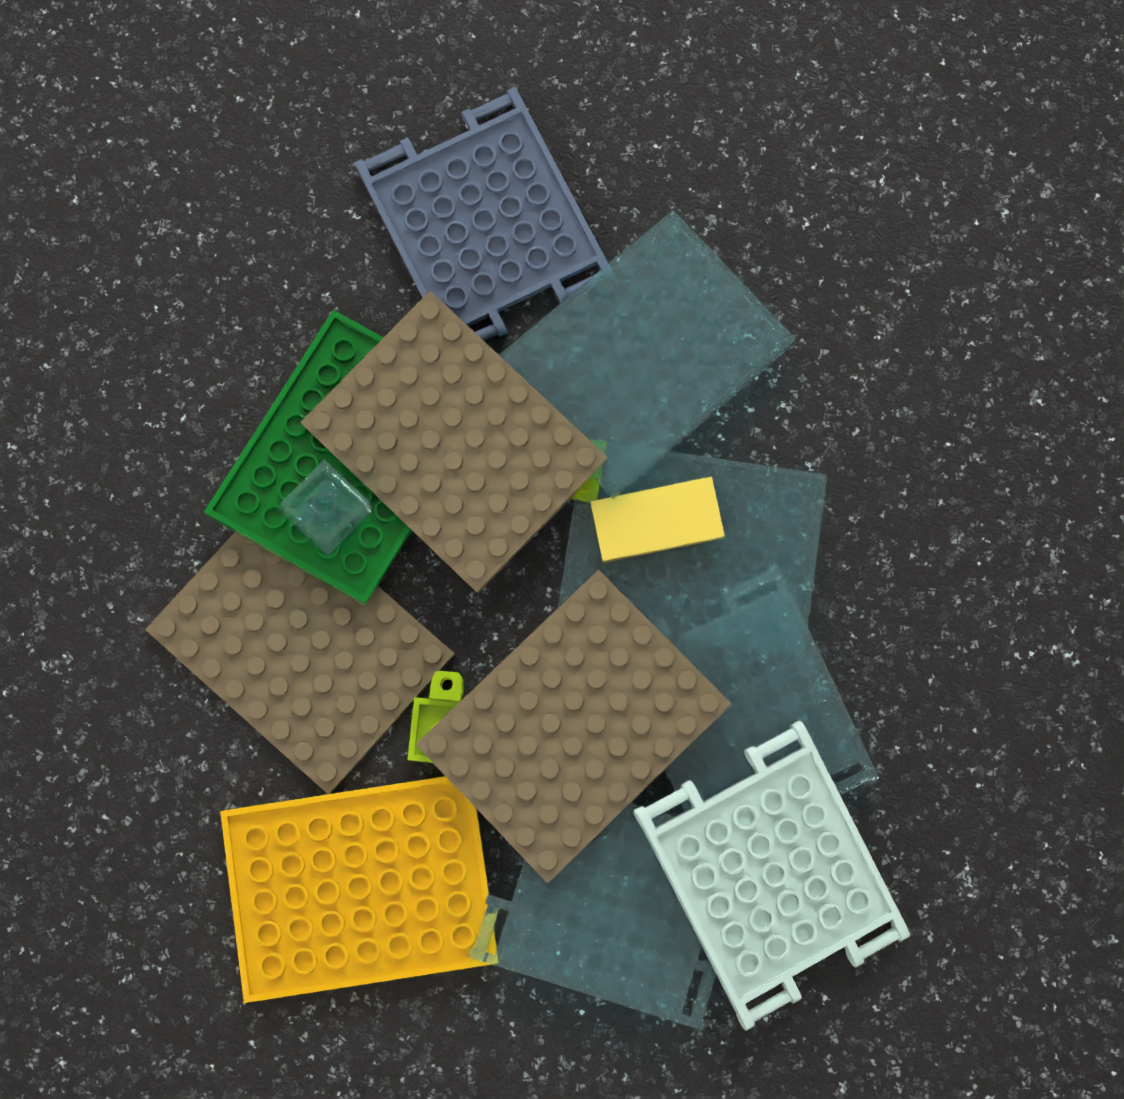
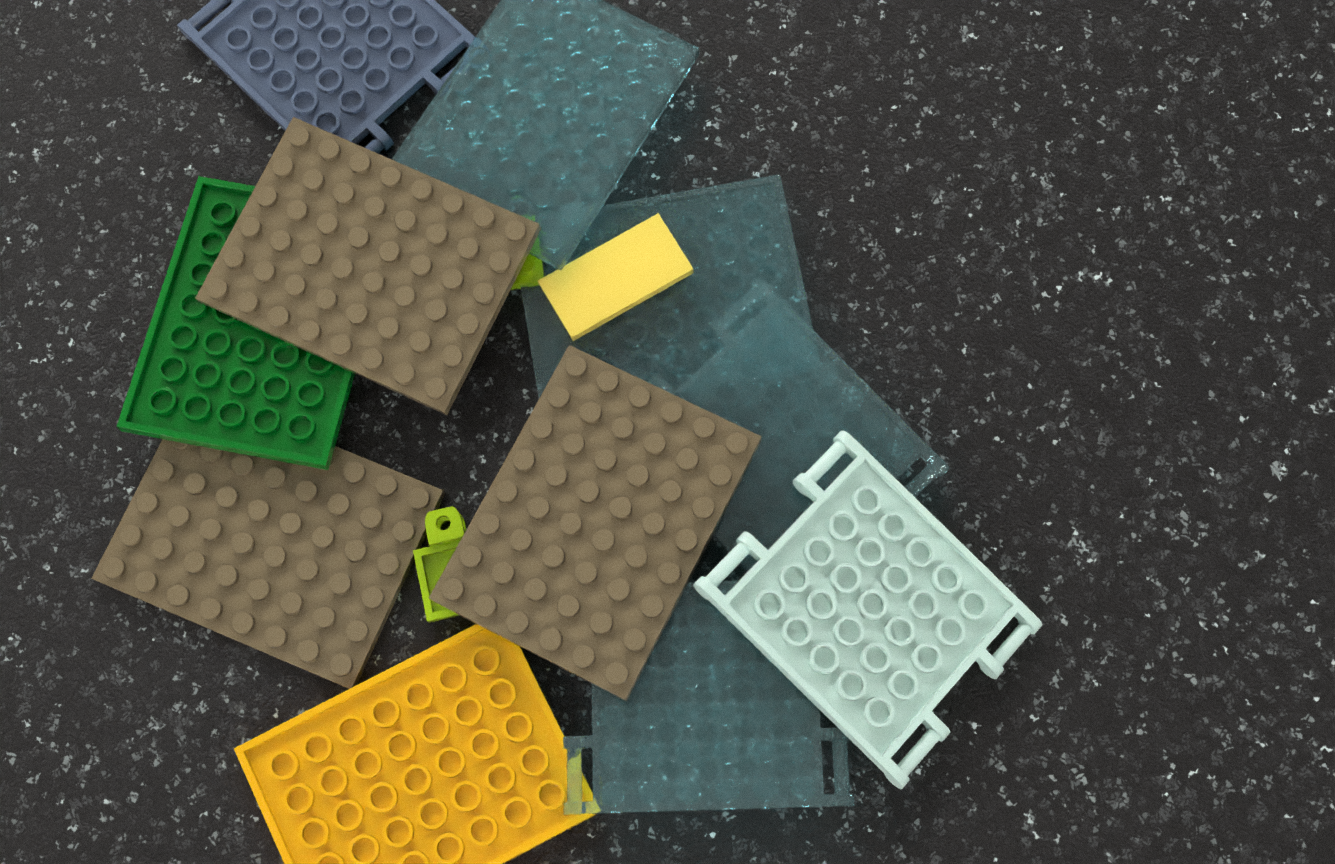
camera: 15 degrees left, 5 degrees down
(325, 507) = (248, 375): clear light blue brick -> none

